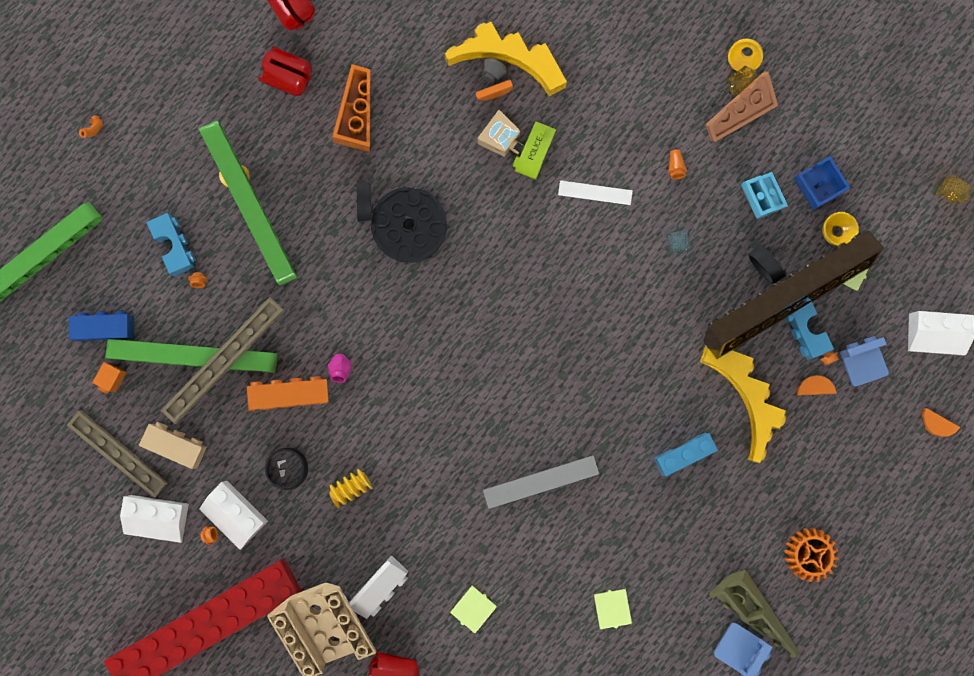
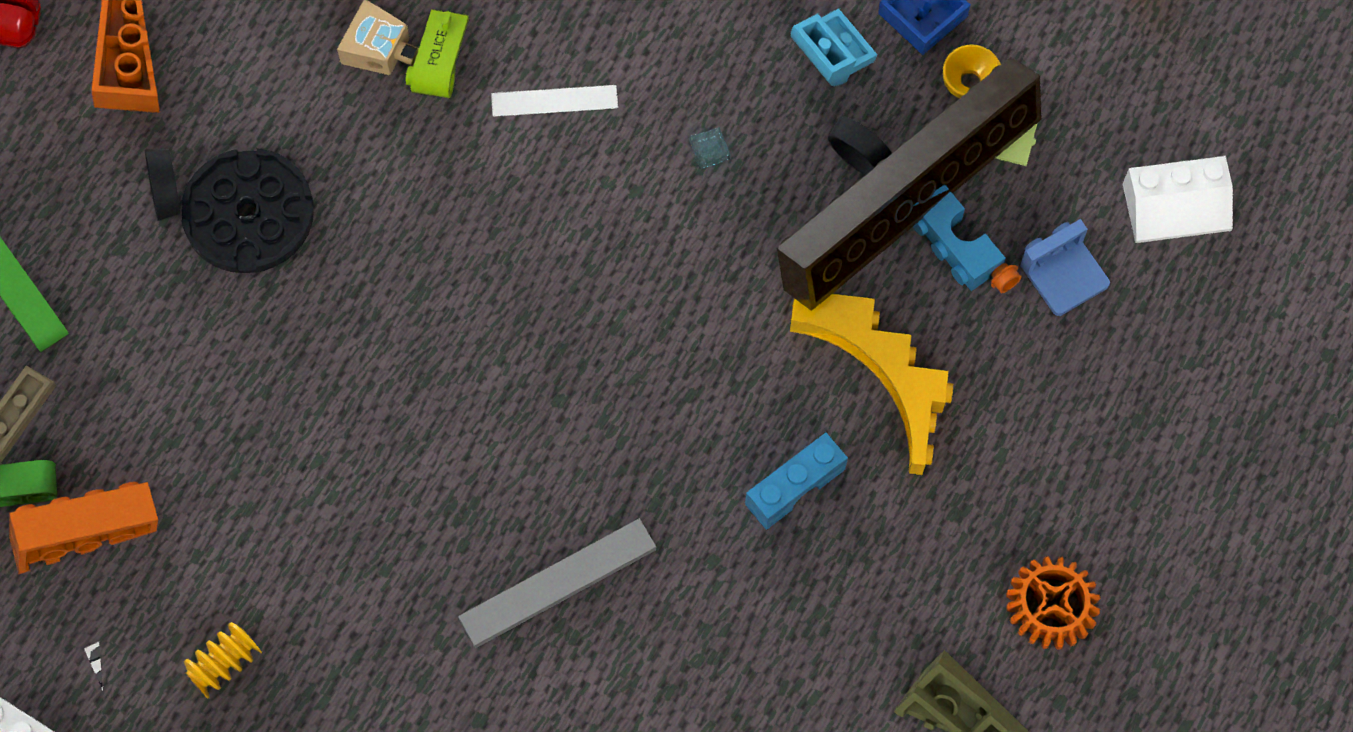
camera: 10 degrees left, 15 degrees down
(304, 469) = (119, 680): black tyre -> none
(339, 368) = (168, 464): dark pink rock -> none
(677, 167) = (680, 31): orange cone -> none
(816, 385) = (994, 328): orange tile -> none
(938, 425) = (1215, 348): orange tile -> none

